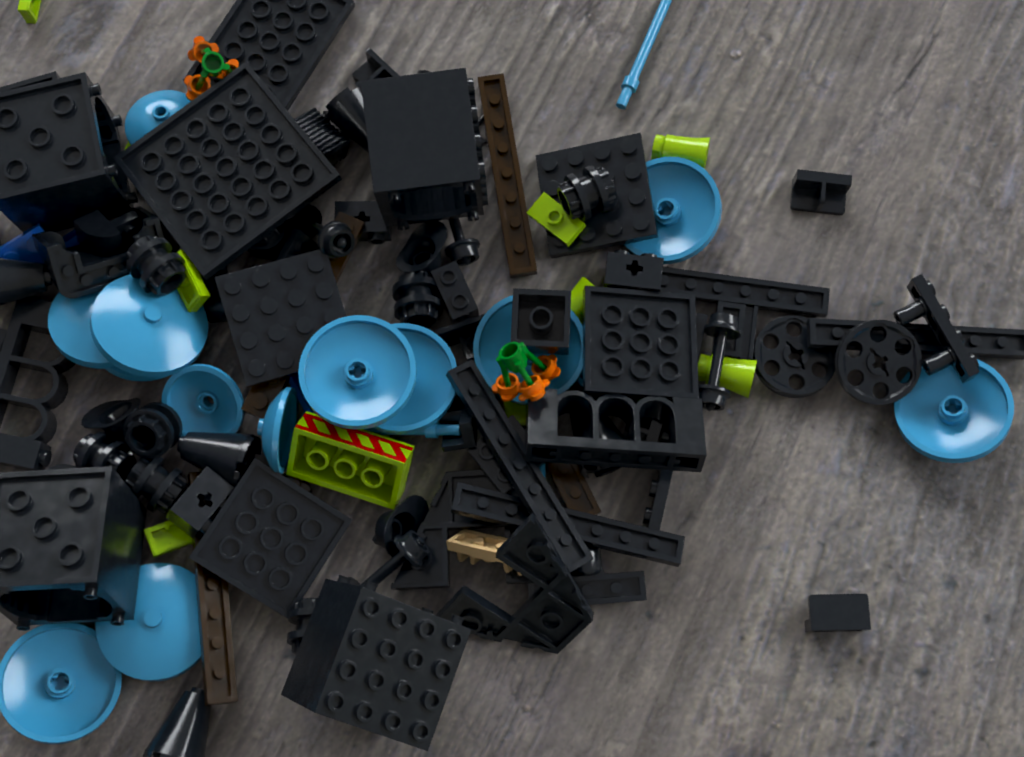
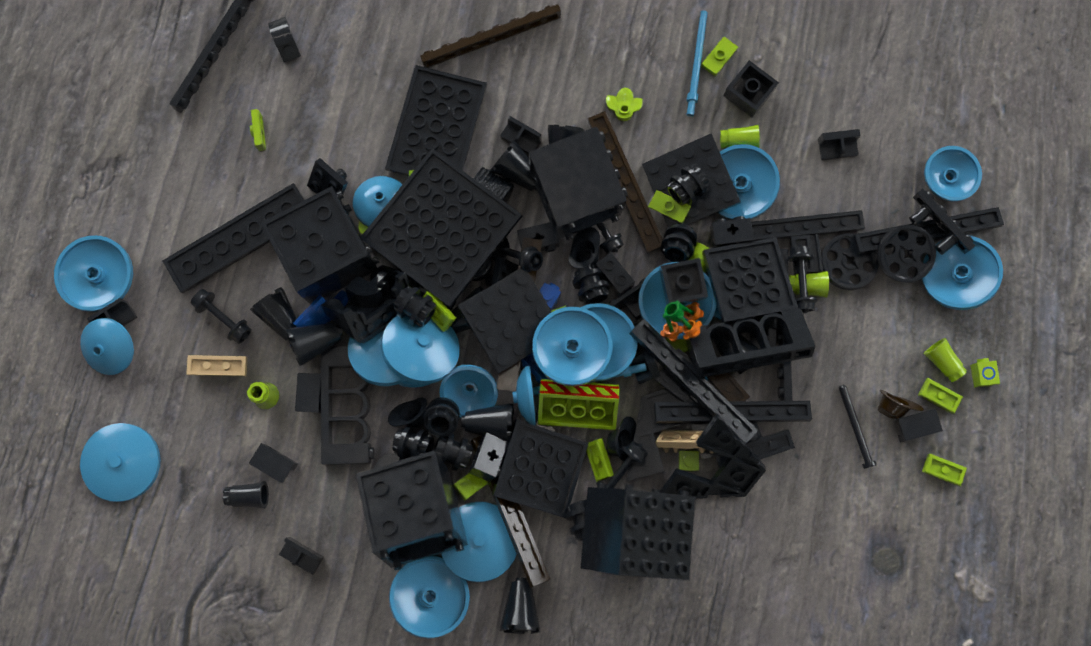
camera: 15 degrees left, 5 degrees up
(101, 72) = (324, 177): none -> black plate
(212, 65) = (408, 155): plant -> none
(356, 299) = (550, 294): none -> blue brick
(360, 547) = (599, 460): none -> lime plate
(489, 581) = (689, 460): none -> lime plate
(533, 72) = (624, 101): none -> lime plate
(556, 268) = (679, 242): none -> black piece
(682, 39) = (719, 56): none -> lime plate
(712, 88) = (750, 89): none -> black brick
(746, 596) = (856, 428): none -> black bar
(810, 577) = (895, 406): none -> dark brown piece
(861, 688) = (944, 469): none -> lime plate
(880, 579) = (940, 396): none -> lime plate
(901, 528) = (946, 360): none -> lime plant
(954, 562) = (985, 373): none -> lime brick
(984, 258) = (960, 166): none -> dark azure dish

